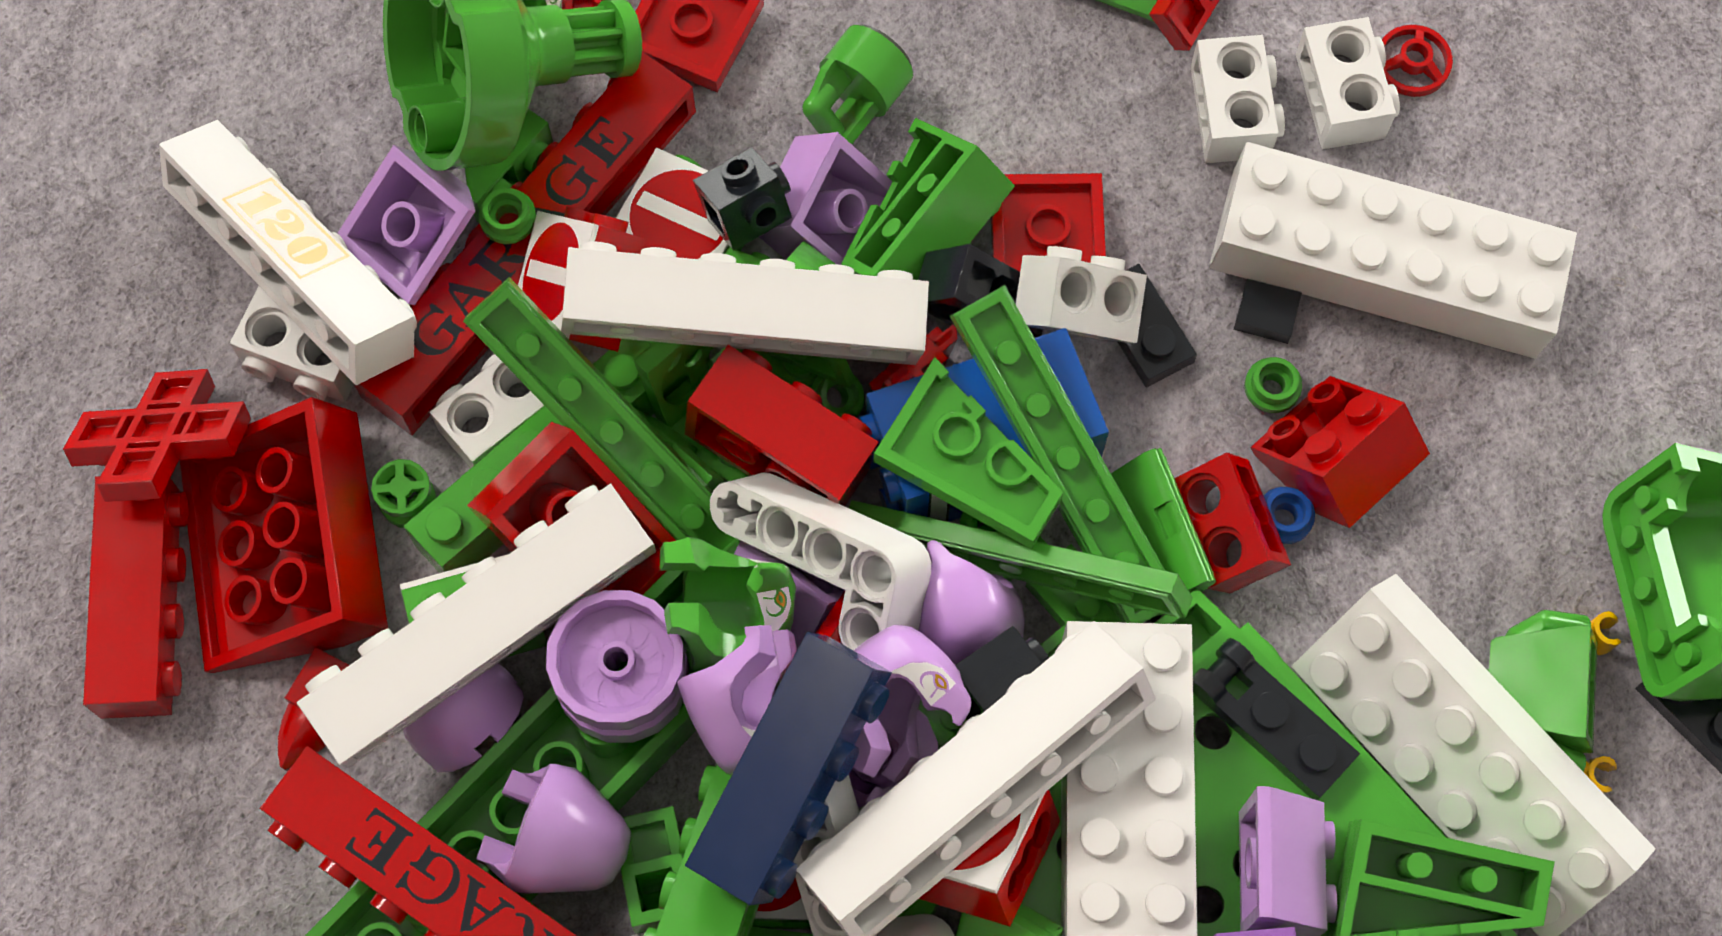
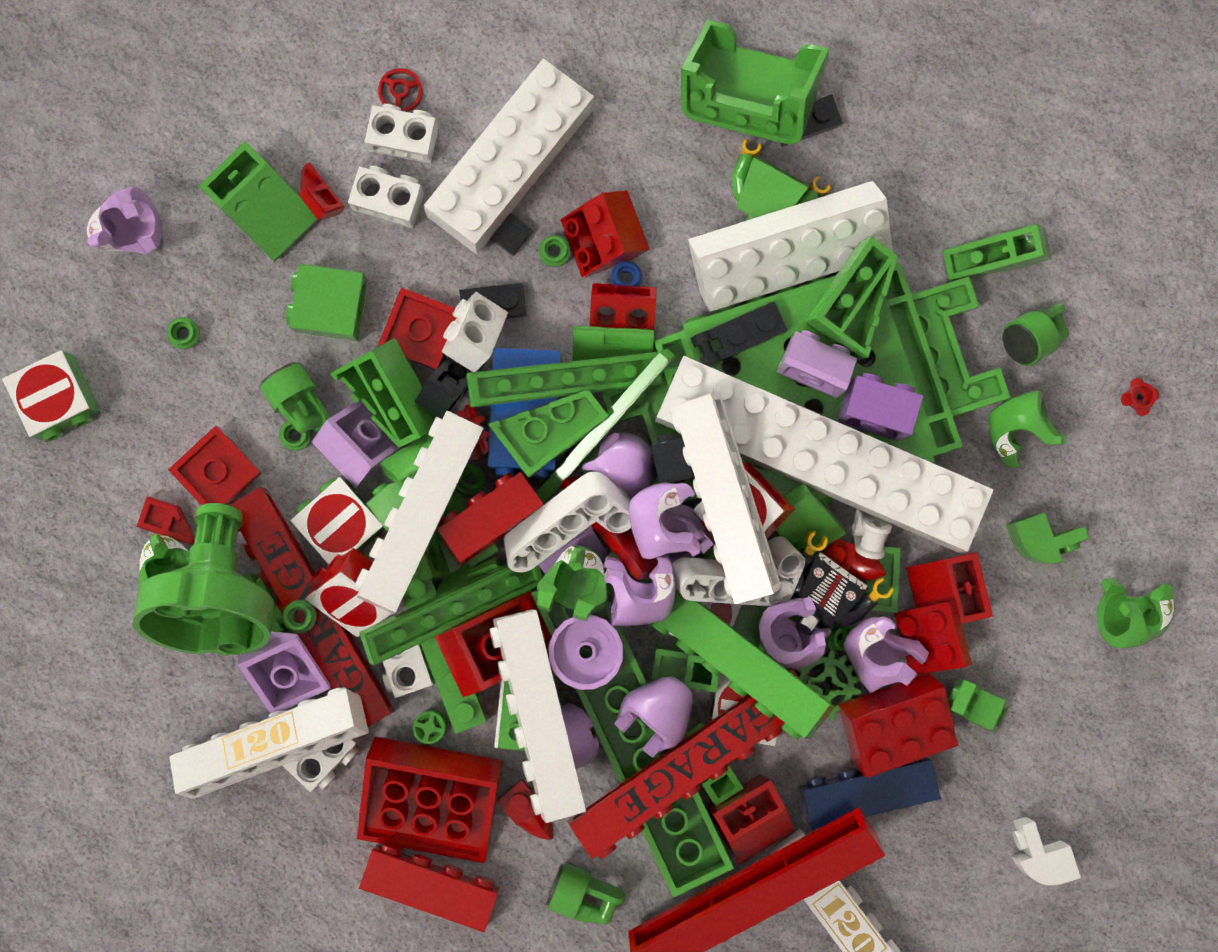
camera: 70 degrees left, 15 degrees up
(148, 441) = (348, 848): red plate -> none
(199, 822) = (568, 893): none -> bright green piece
(744, 197) = (346, 485): black brick -> none
(786, 105) = (286, 440): none -> bright green plate
(789, 770) = (687, 587): dark blue brick -> none
(1027, 79) = (327, 302): none -> bright green piece

